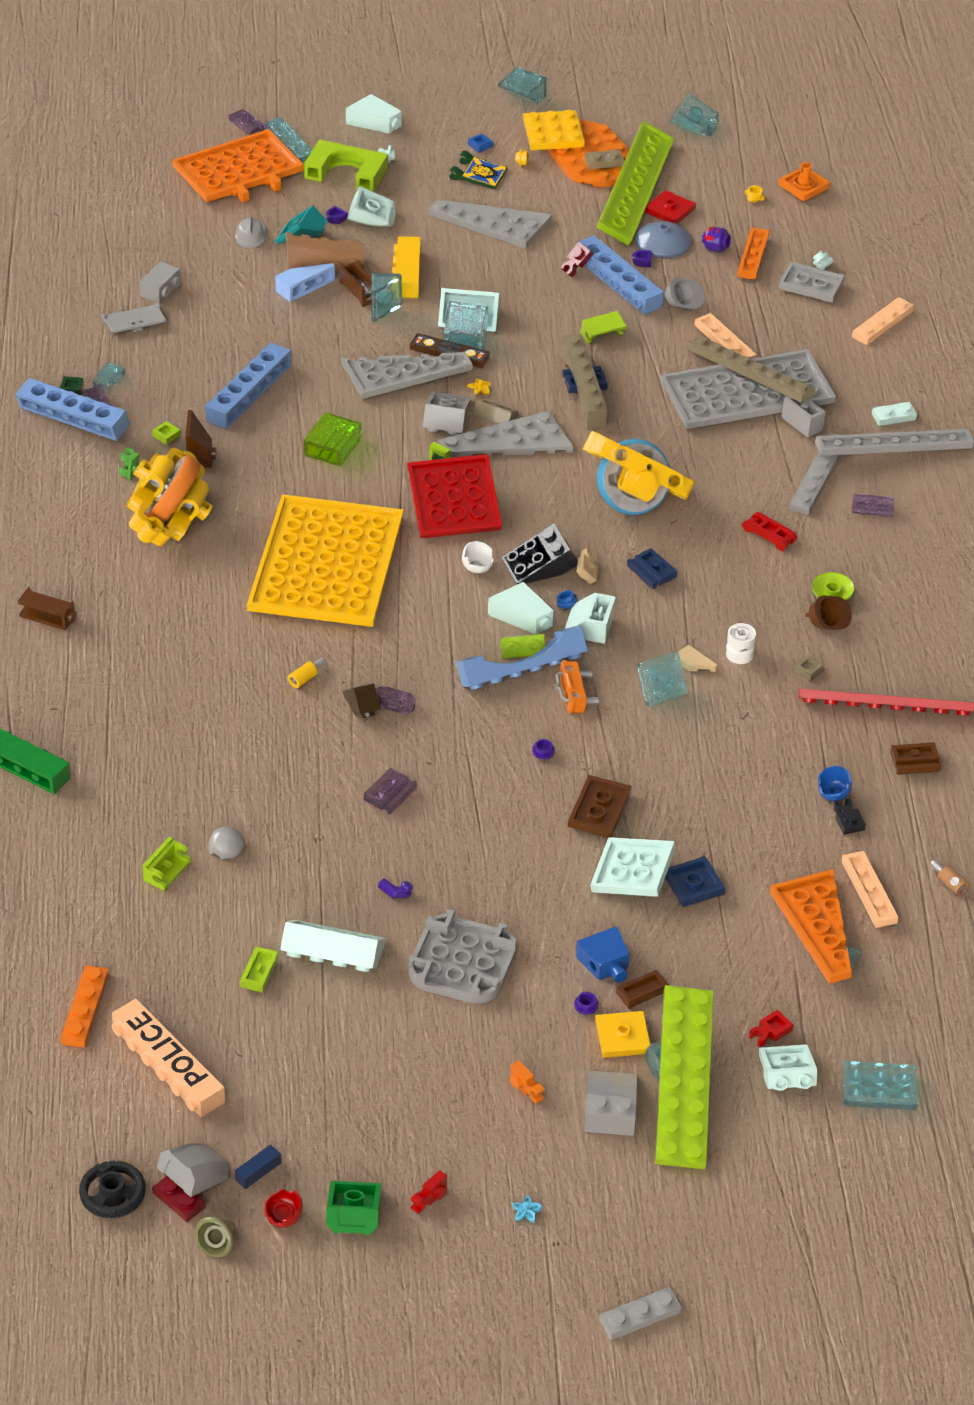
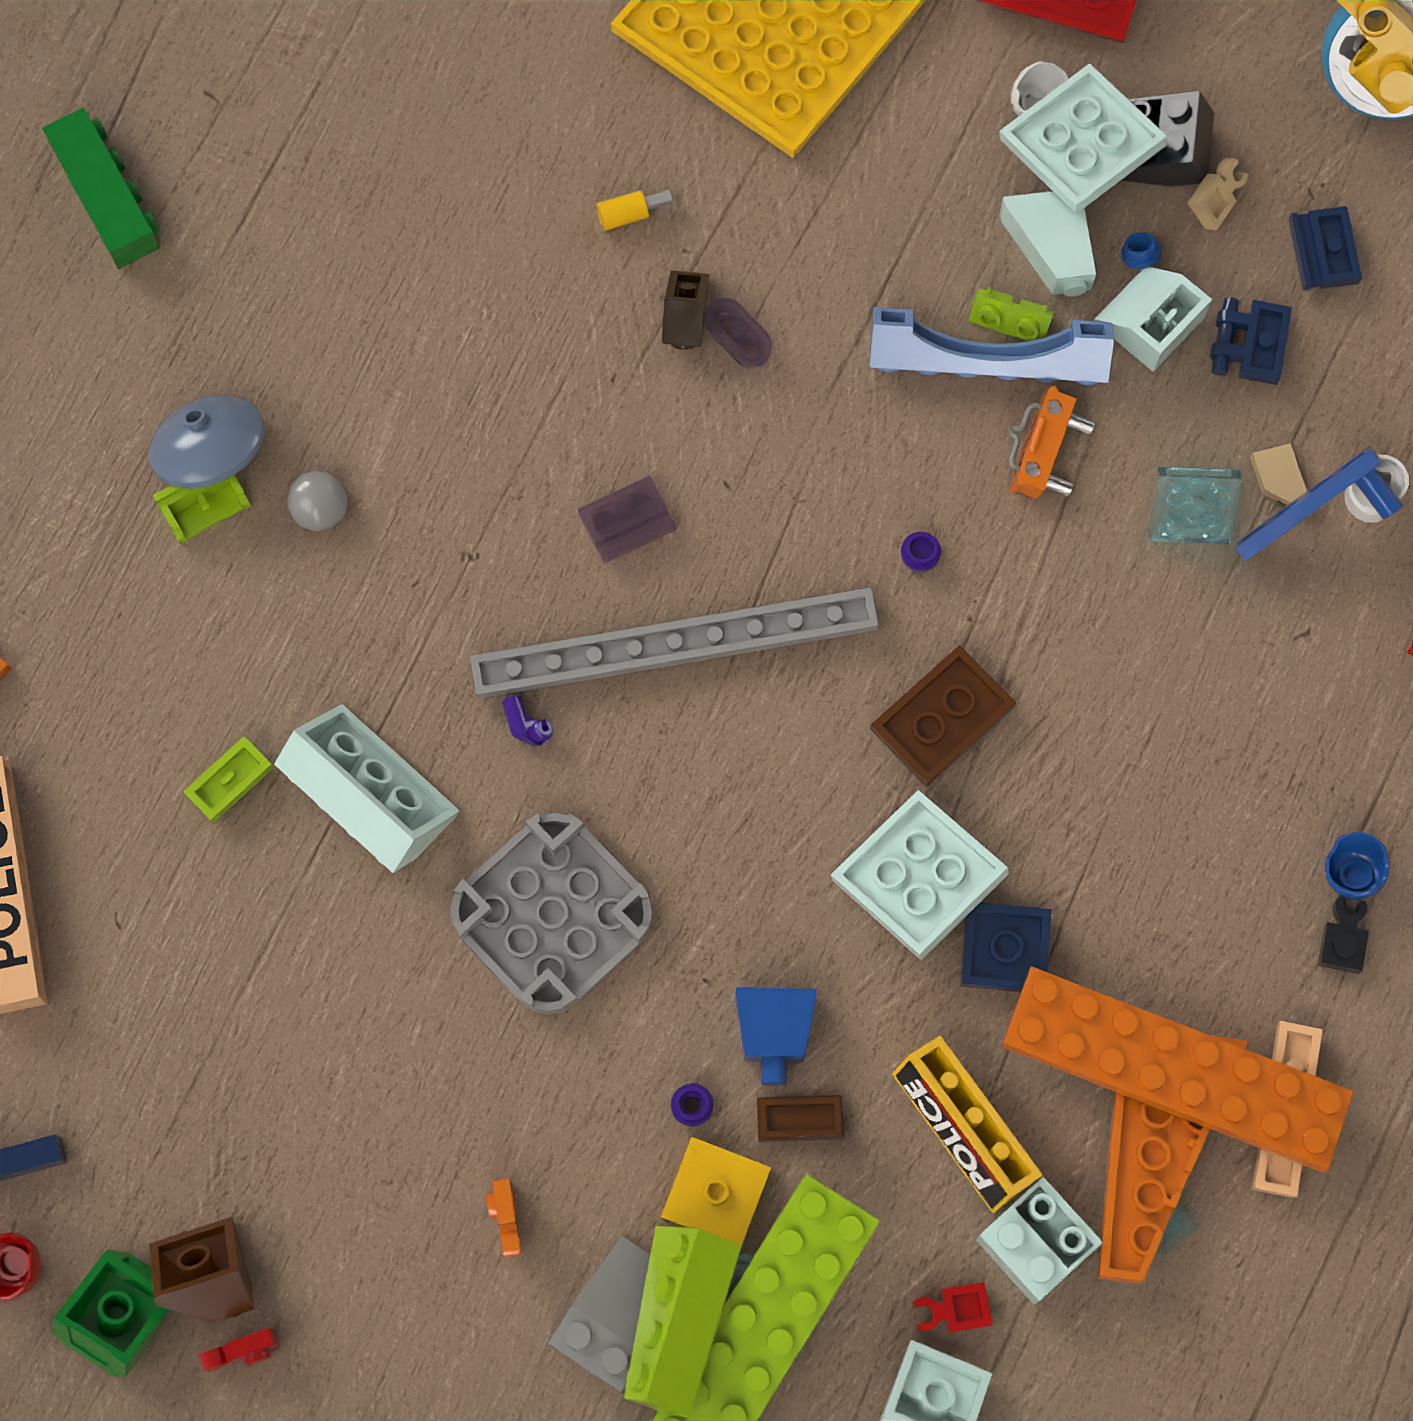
camera: 30 degrees right, 30 degrees up
(154, 835) = (206, 441): none -> sand blue dish
(391, 1166) = (202, 1273): none -> reddish brown slope
(446, 829) = (674, 643): none -> light grey plate
(511, 560) = (1083, 138): none -> light aqua plate
(642, 1069) = (678, 1317): none -> lime wedge
(648, 613) = (1263, 343): none -> dark blue plate
(725, 950) = (966, 1124): none -> yellow brick
(729, 628) = (1358, 470): none -> blue piece
(791, 983) = (1038, 1241): none -> light aqua slope
(807, 888) = (1178, 1069): none -> orange plate

